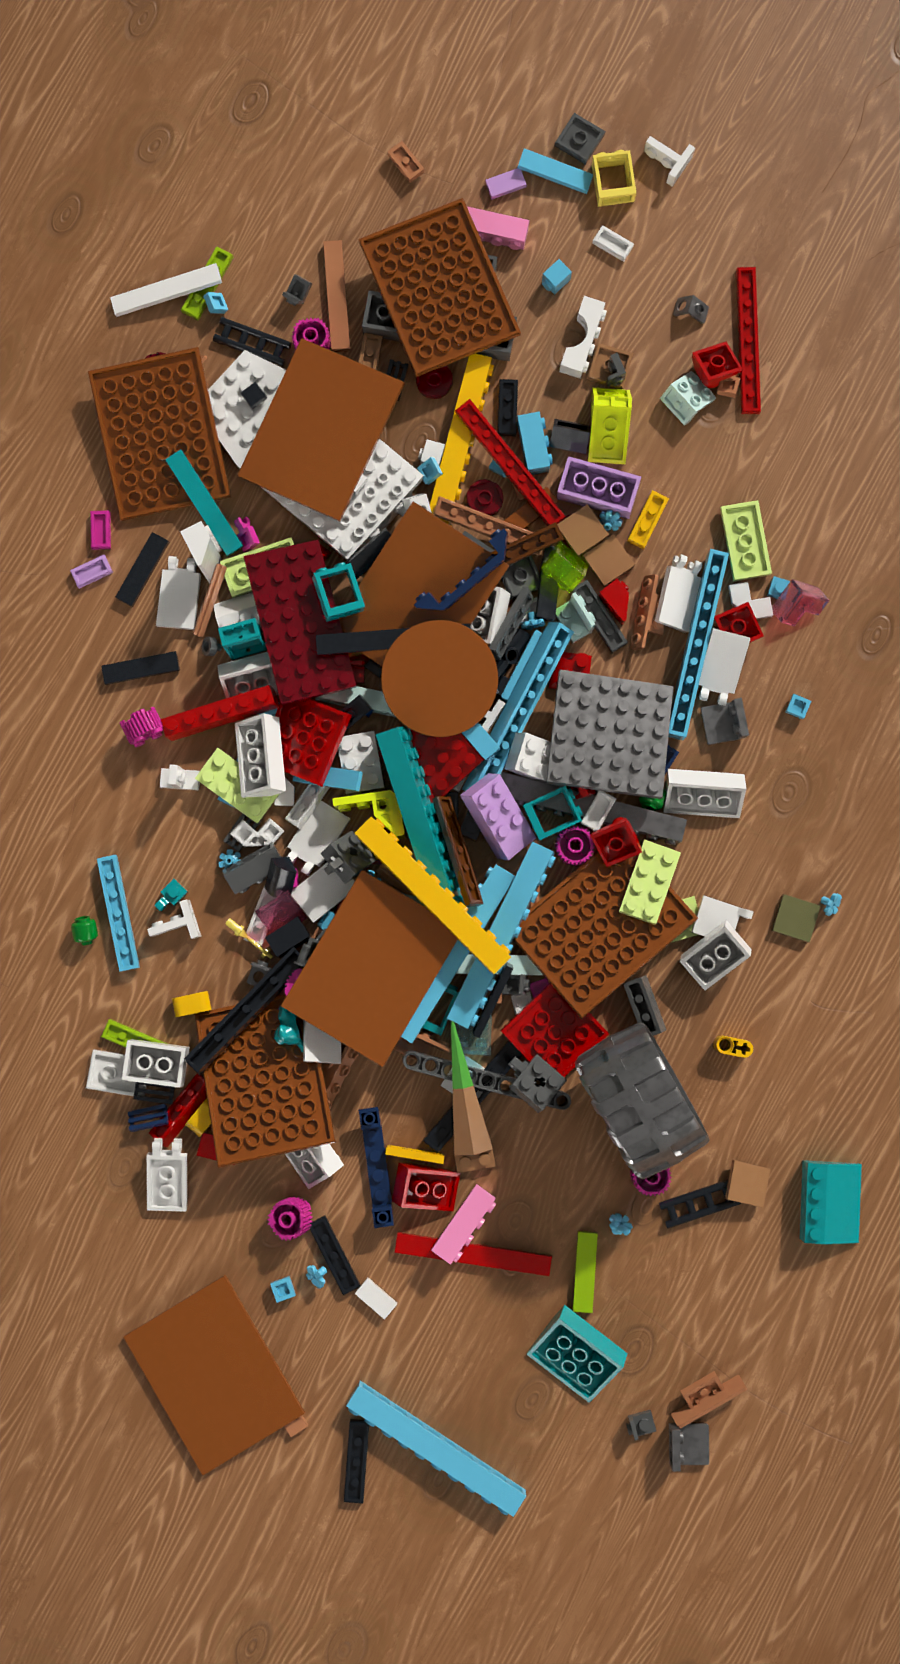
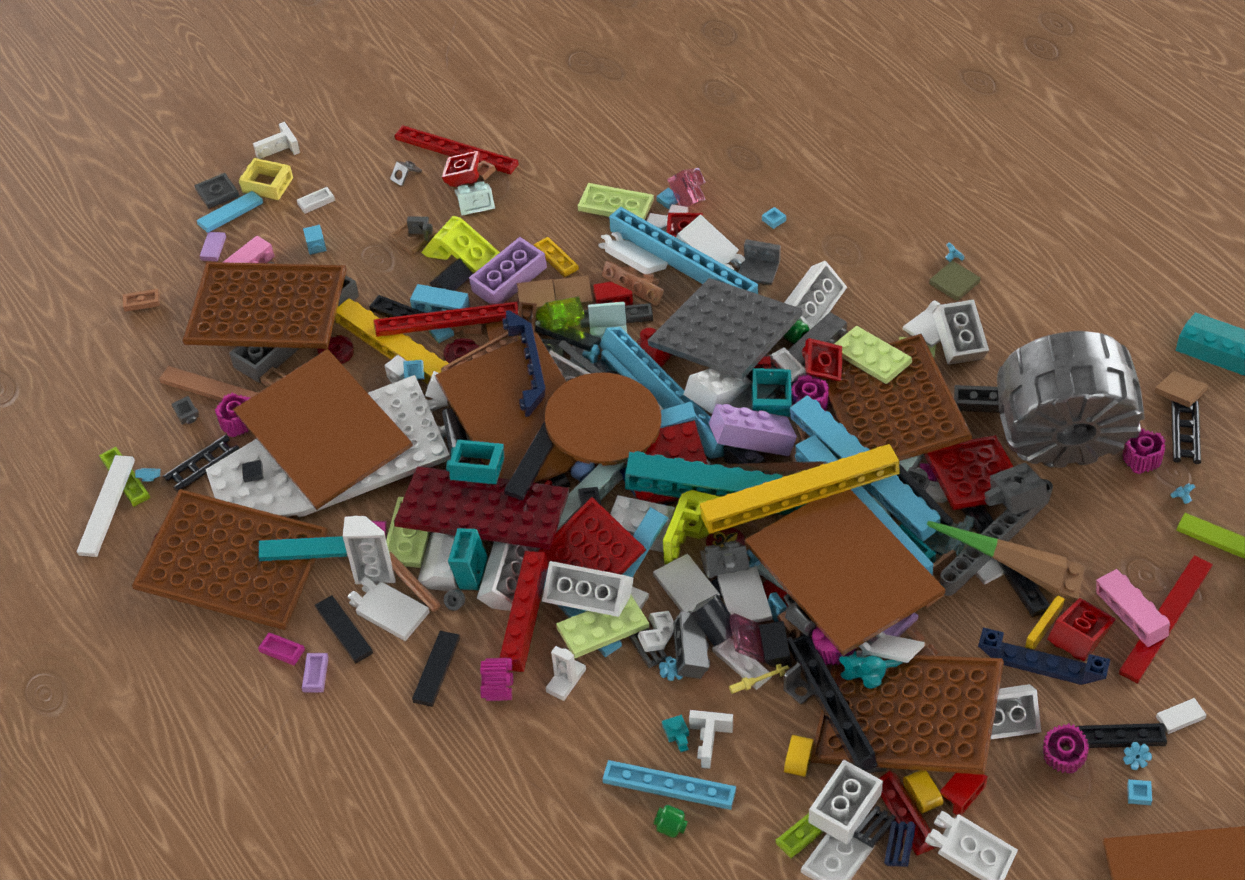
camera: 60 degrees left, 35 degrees down
(306, 805) = (654, 582): white tile -> none
(589, 316) = (365, 231): white arch -> none
(610, 520) = (539, 274): medium azure plant -> none

